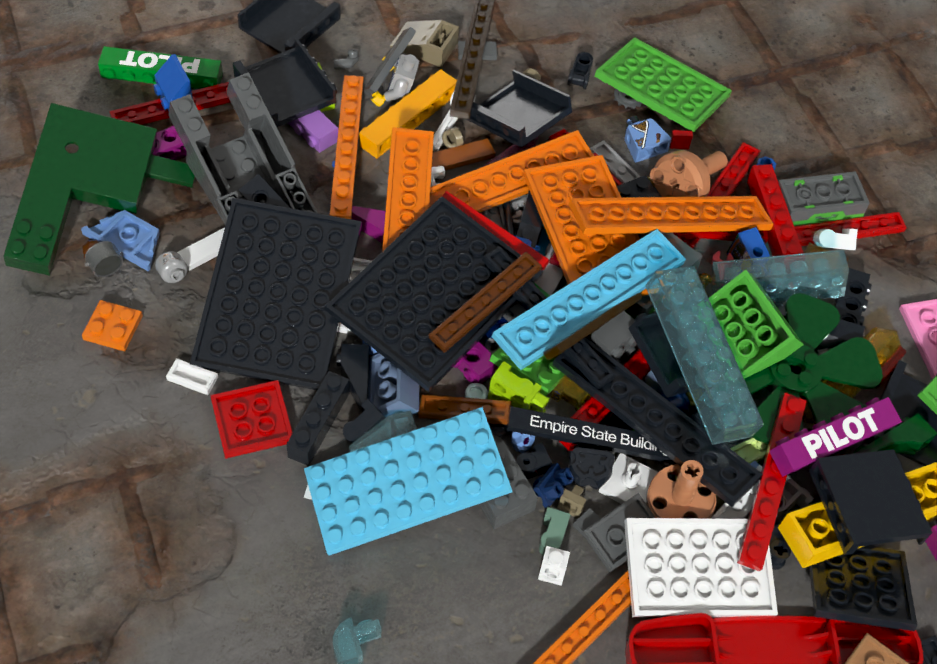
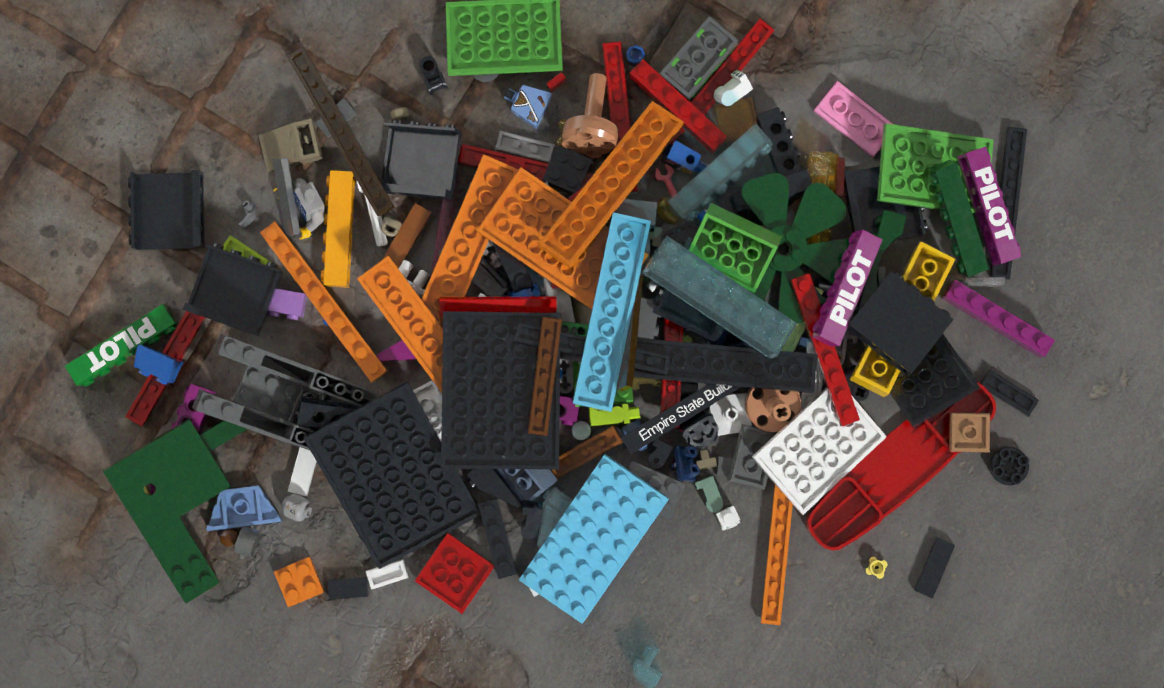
camera: 30 degrees left, 30 degrees up
(147, 361) = (347, 588): none -> black tile

